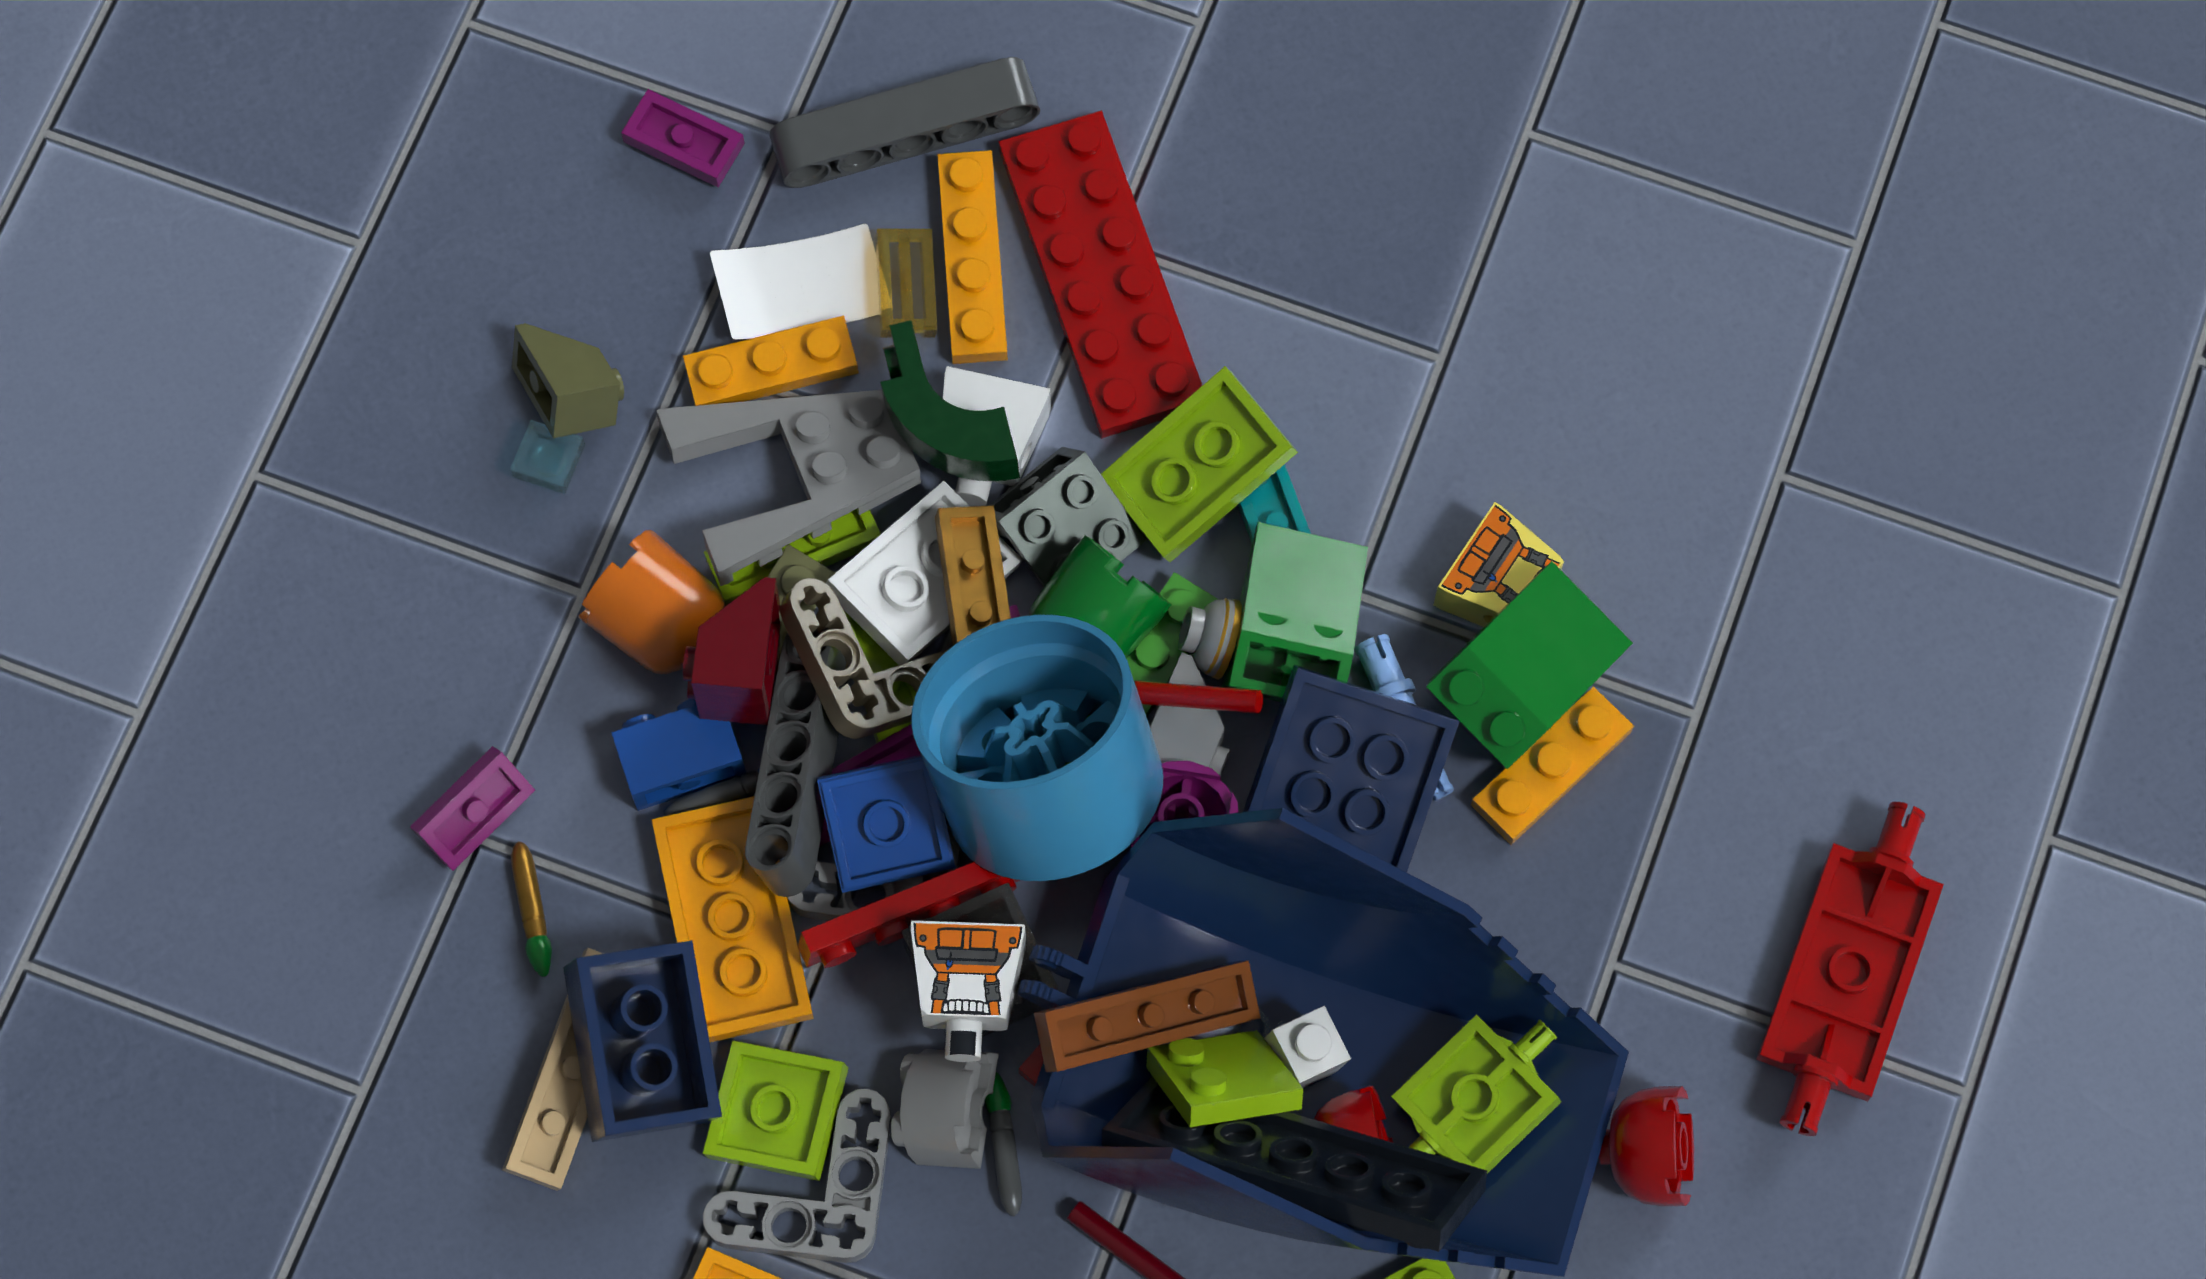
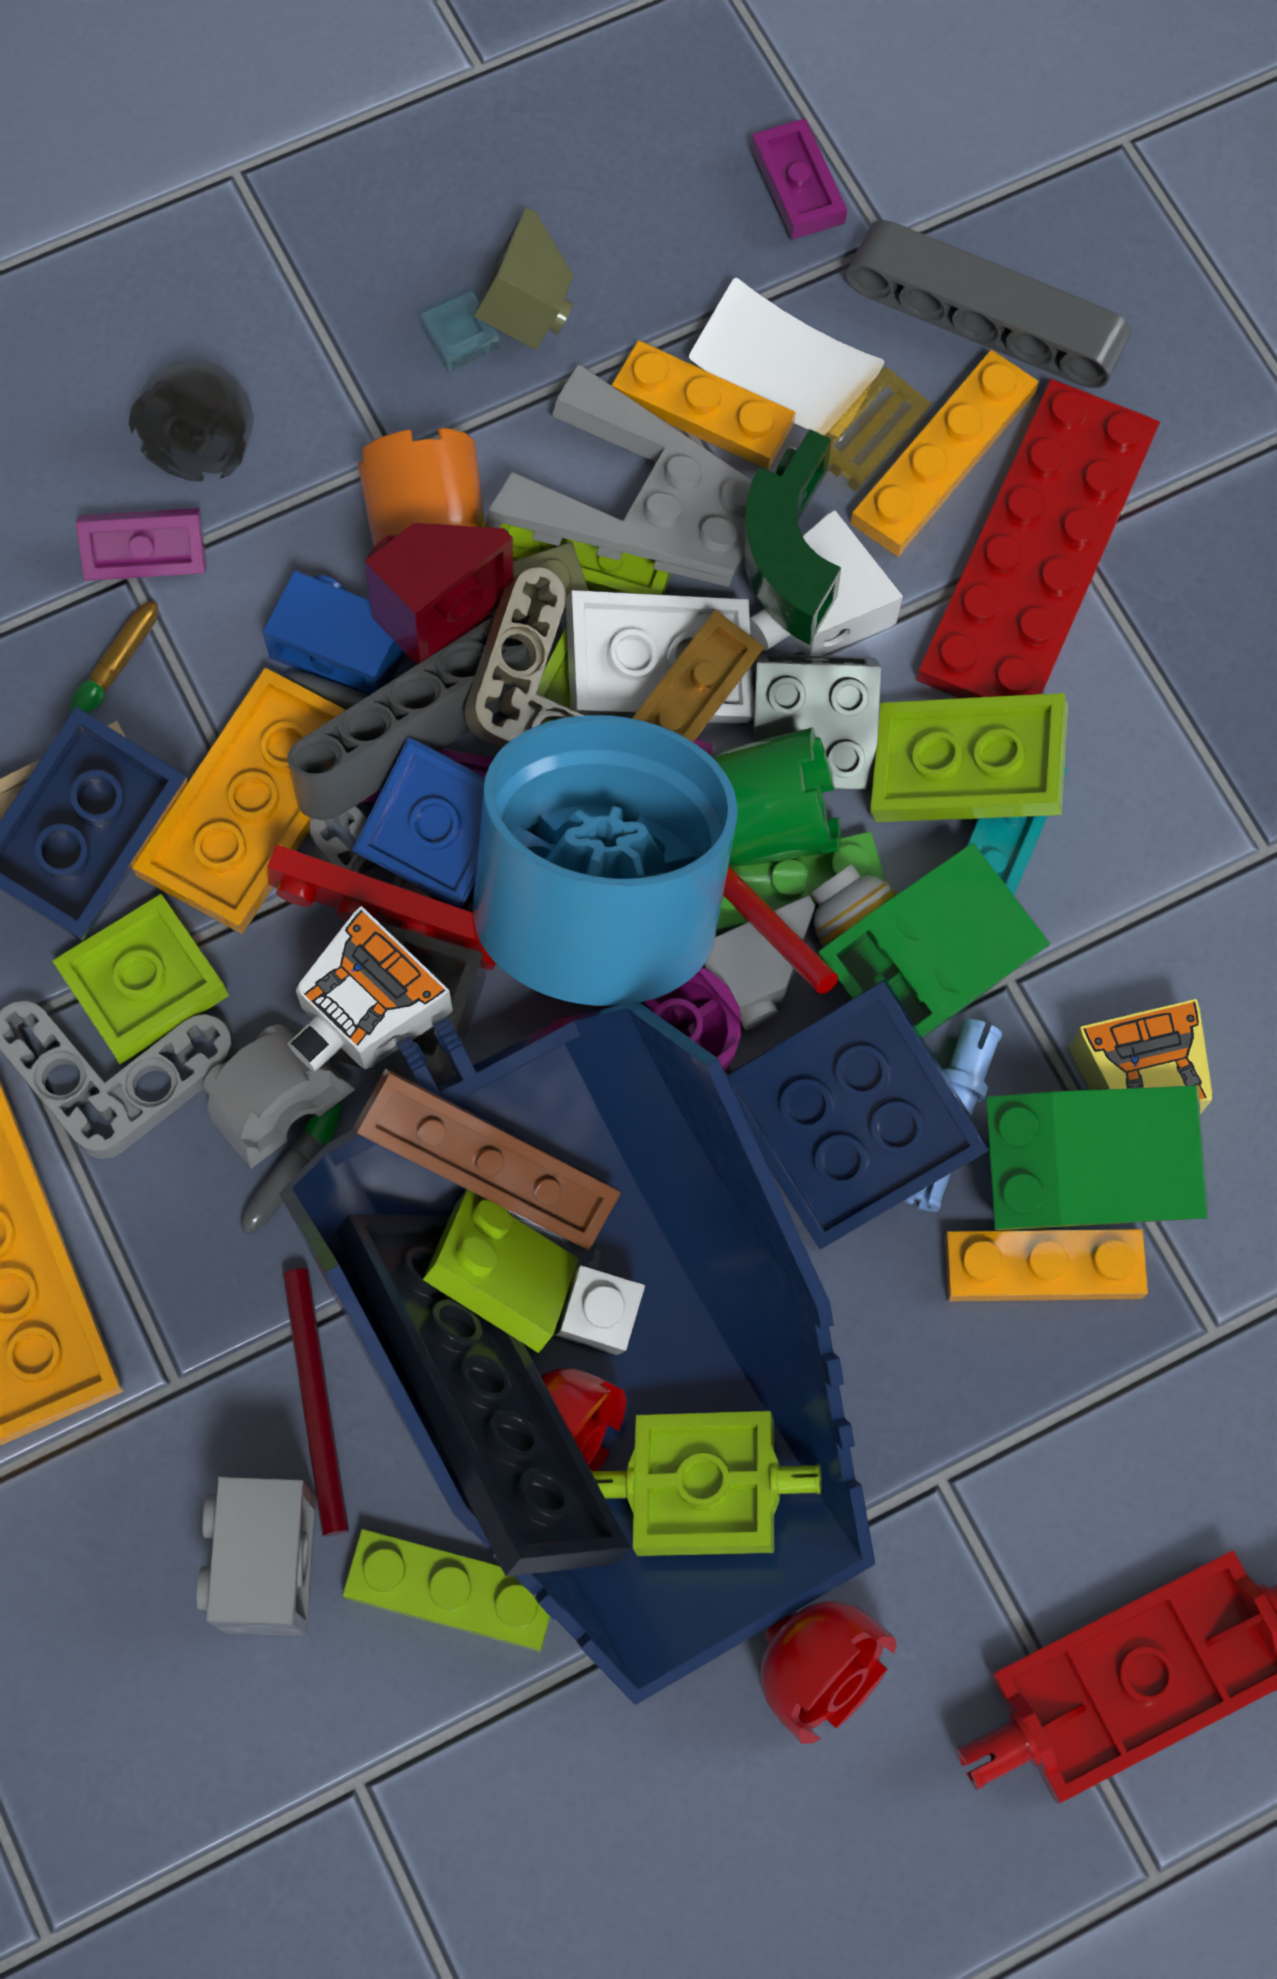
camera: 40 degrees right, 0 degrees up
(424, 685) = (193, 419): none -> clear smoke cylinder

